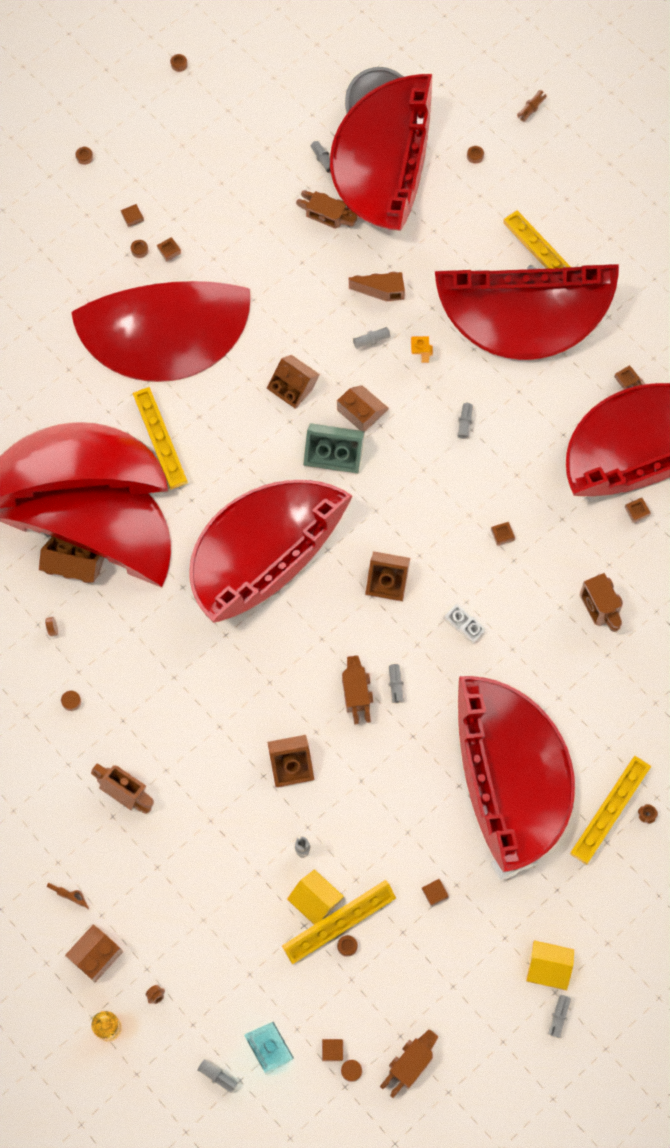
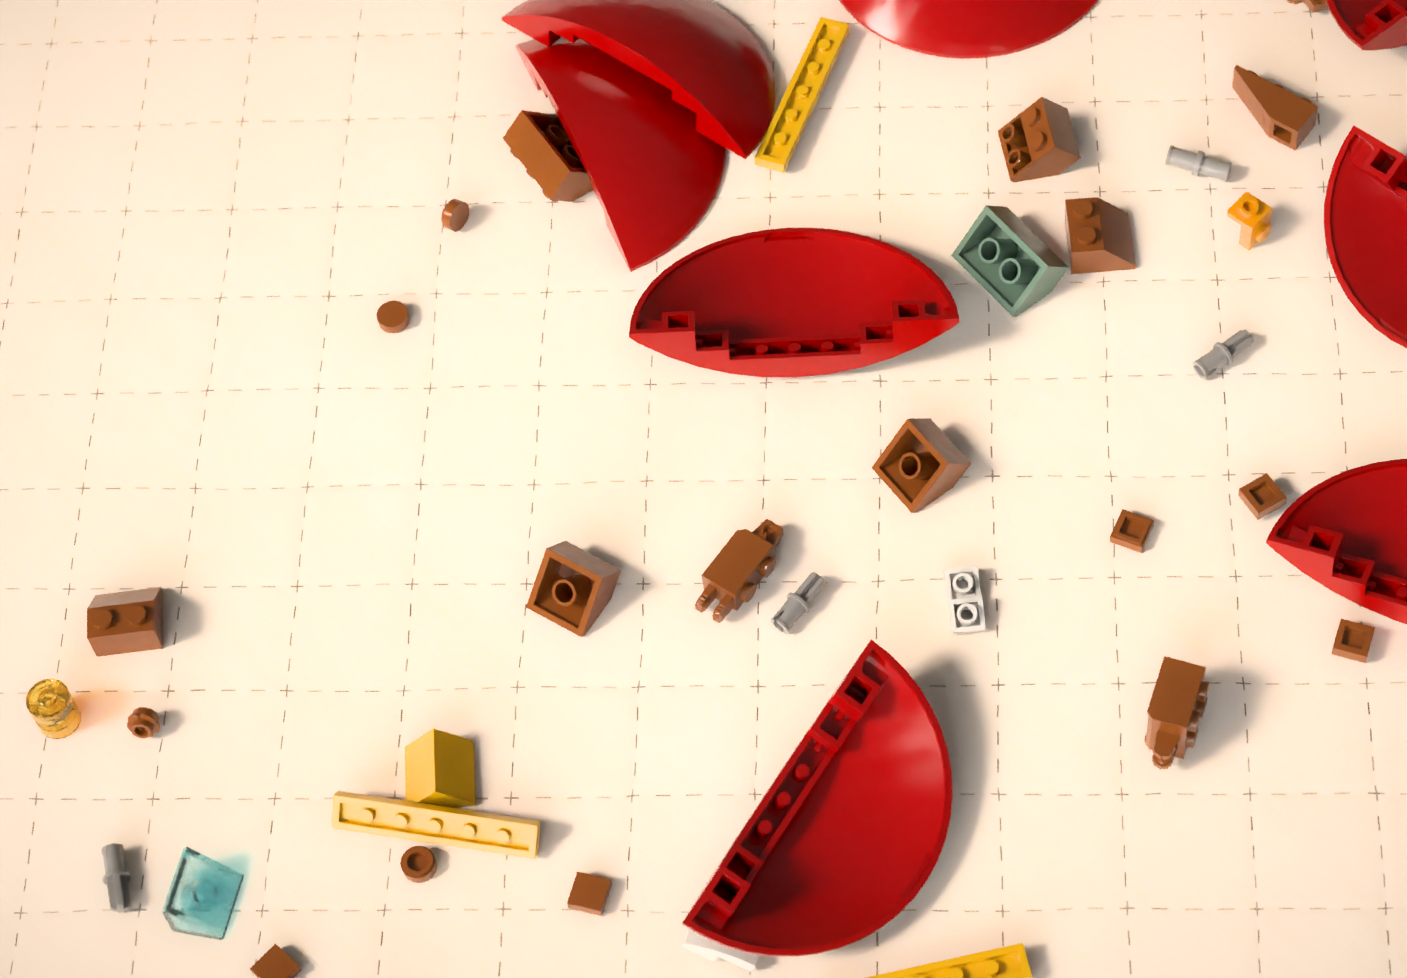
camera: 50 degrees right, 10 degrees down
(69, 895) = (169, 535): dark orange hand -> none
(123, 788) = (345, 458): dark orange hinge -> none
(301, 852) = (477, 694): light grey pin -> none
(542, 474) = (1262, 496): none -> dark orange plate

